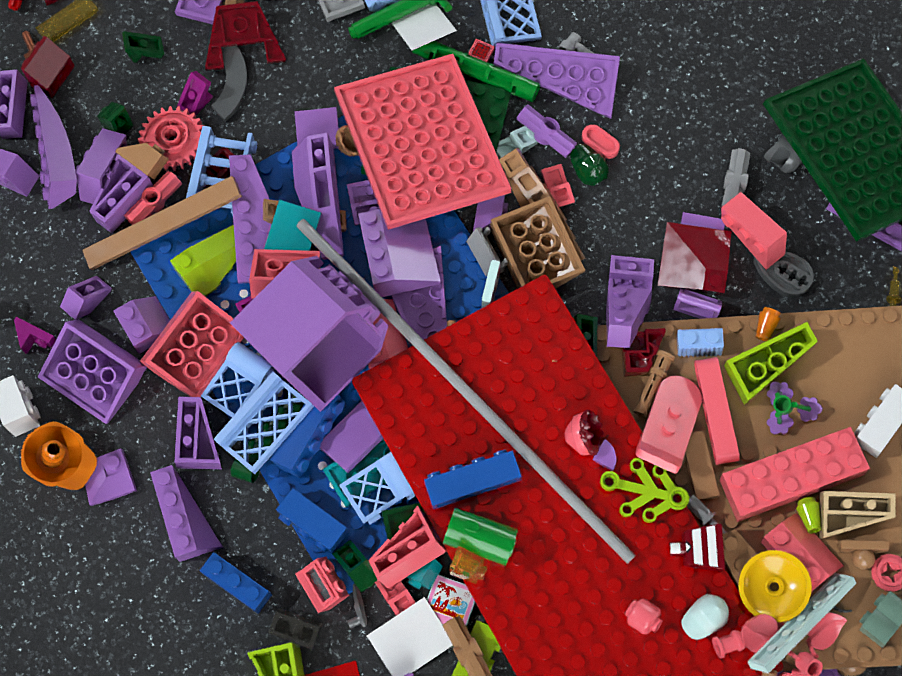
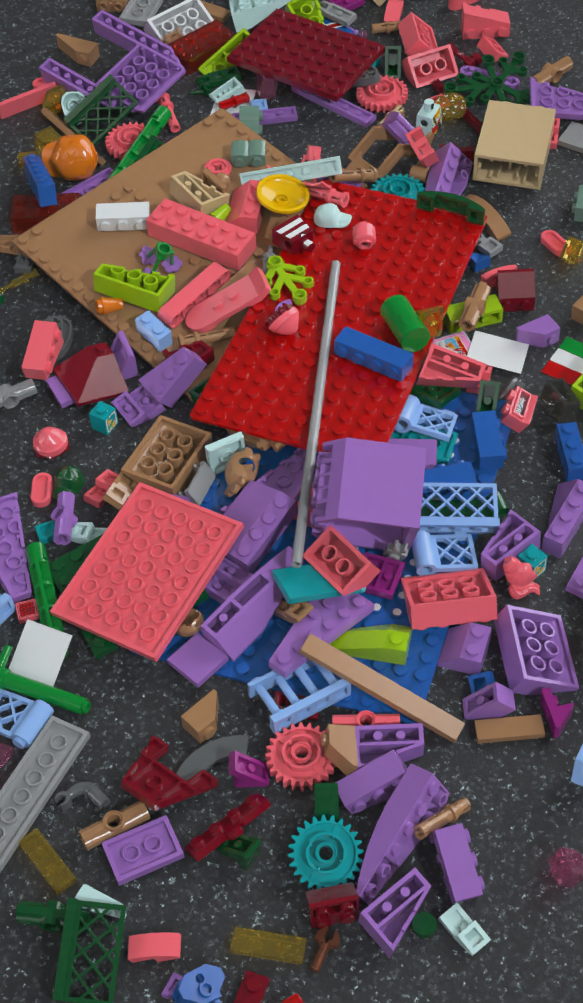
camera: 130 degrees left, 20 degrees down
(33, 185) = (448, 814): none -> medium nougat pin
(49, 304) = (509, 729): none -> medium nougat tile
(84, 92) = (336, 838): none -> teal gear
(103, 309) = (480, 680): none -> blue slope
(159, 414) = (520, 578): none -> coral hair
(164, 441) = (535, 557): none -> teal brick
(167, 53) = (227, 828): none -> dark red hinge
(265, 98) = (202, 717): none -> medium nougat slope
(460, 285) = (239, 475): none -> medium nougat piece
(551, 111) = (45, 531): none -> teal tile
(635, 235) = (103, 418): none -> teal brick
(644, 176) = (50, 443): none -> coral hair

